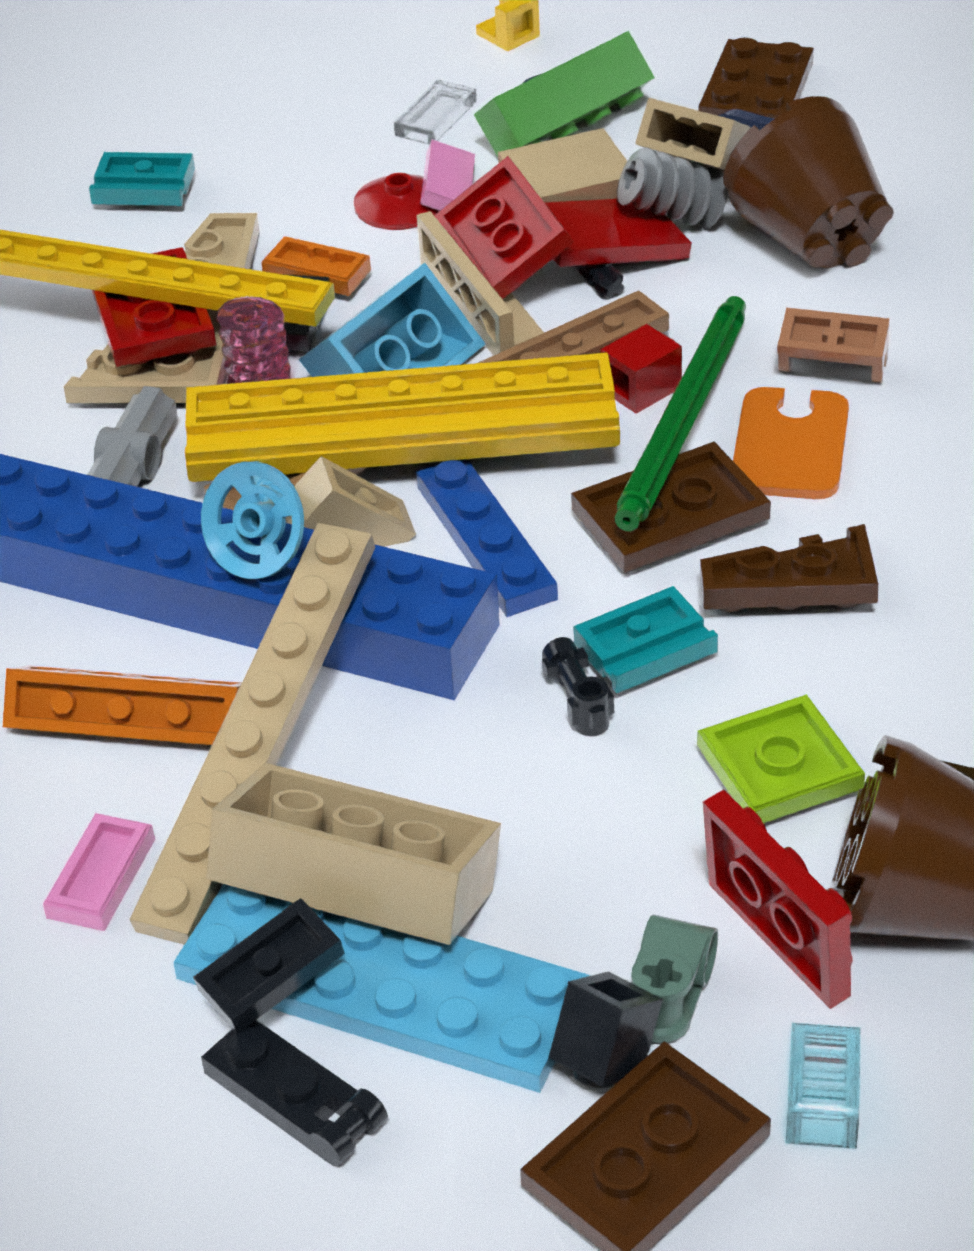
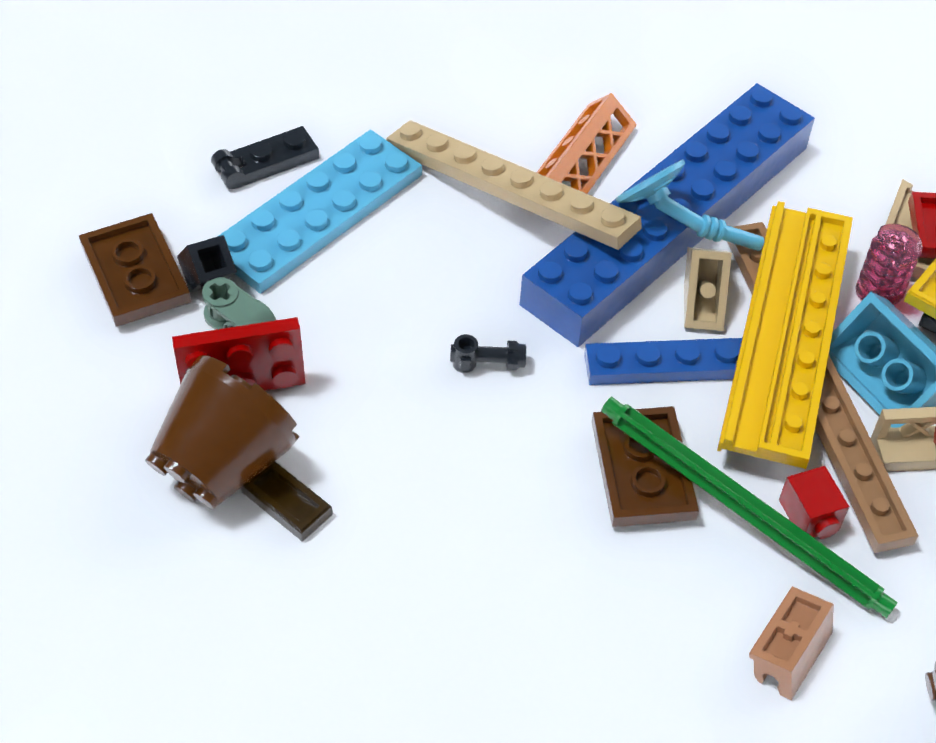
camera: 105 degrees right, 10 degrees up
(99, 872) = (457, 121): bright pink tile -> none
(134, 445) = (820, 193): light grey piece -> none
(268, 965) = (327, 145): black plate -> none
(354, 852) = (385, 196): tan brick -> none
(645, 639) = (513, 403): teal plate -> none
(780, 759) = (369, 431): lime plate -> none
(789, 453) = (693, 577): orange piece -> none
(808, 575) = (537, 513): reddish brown wing -> none
(824, 1122) = (108, 343): clear light blue slope -> none

